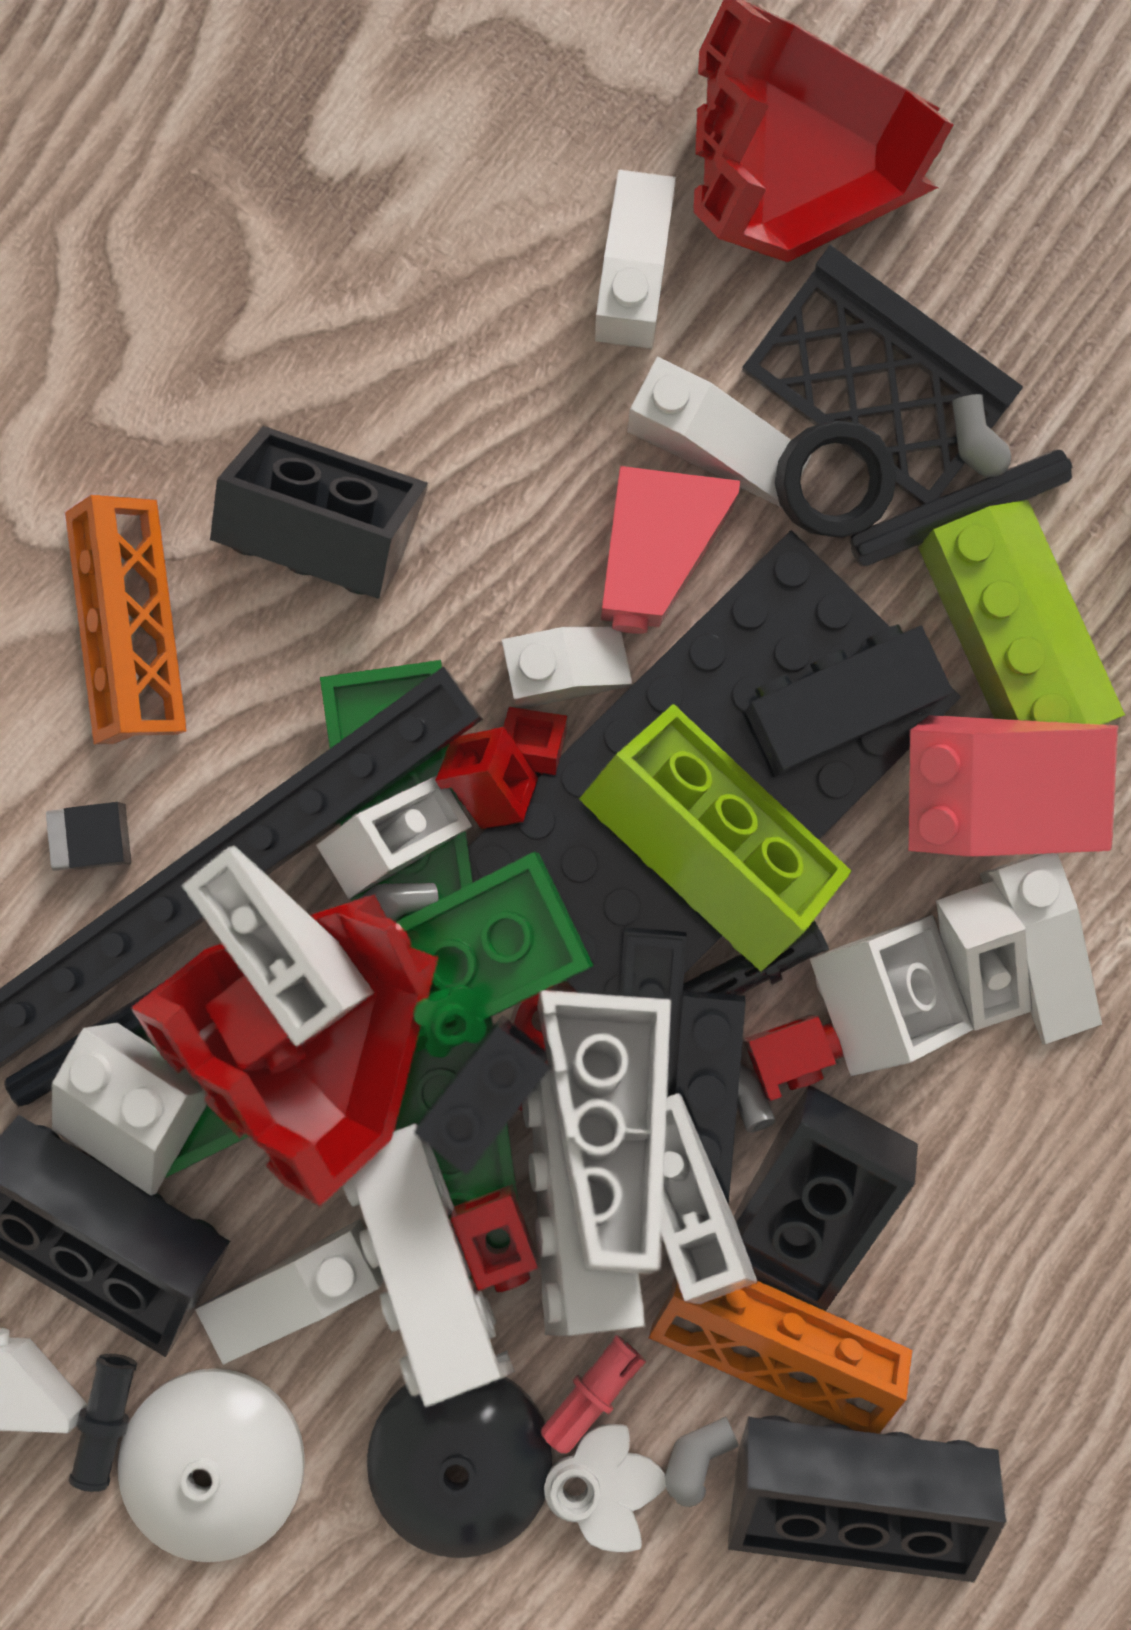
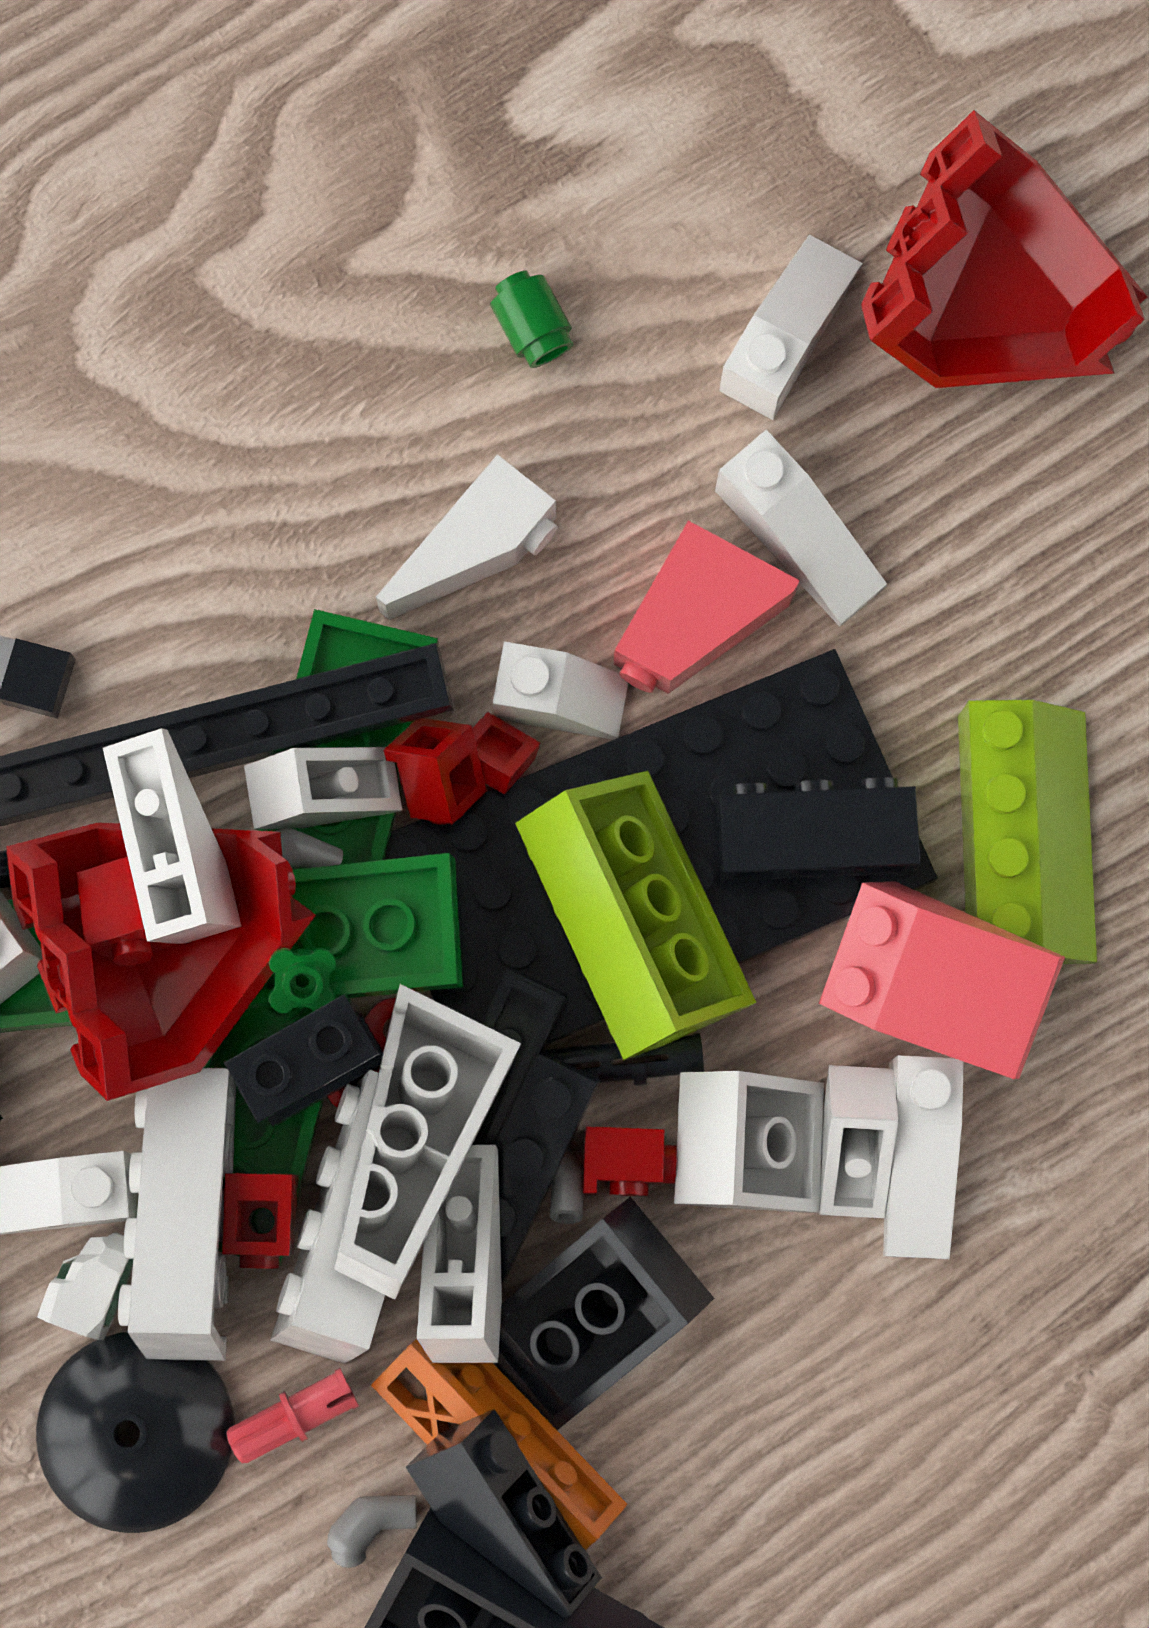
camera: 20 degrees right, 5 degrees down
(105, 623) = (129, 476): orange fence -> none
(316, 511) = (376, 448): black slope -> none
(367, 1360) = (88, 1288): none -> white rock
(405, 339) = (532, 318): none -> green brick
(438, 554) = (478, 537): none -> white slope
(615, 1488) = (278, 1516): white plate -> none
(815, 1410) = (502, 1510): none -> black slope
(880, 486) = (937, 640): black tyre -> none
(901, 328) = (1030, 507): black fence -> none
(916, 524) = (1071, 691): black axle -> none
(976, 441) = (1051, 634): light grey arm -> none

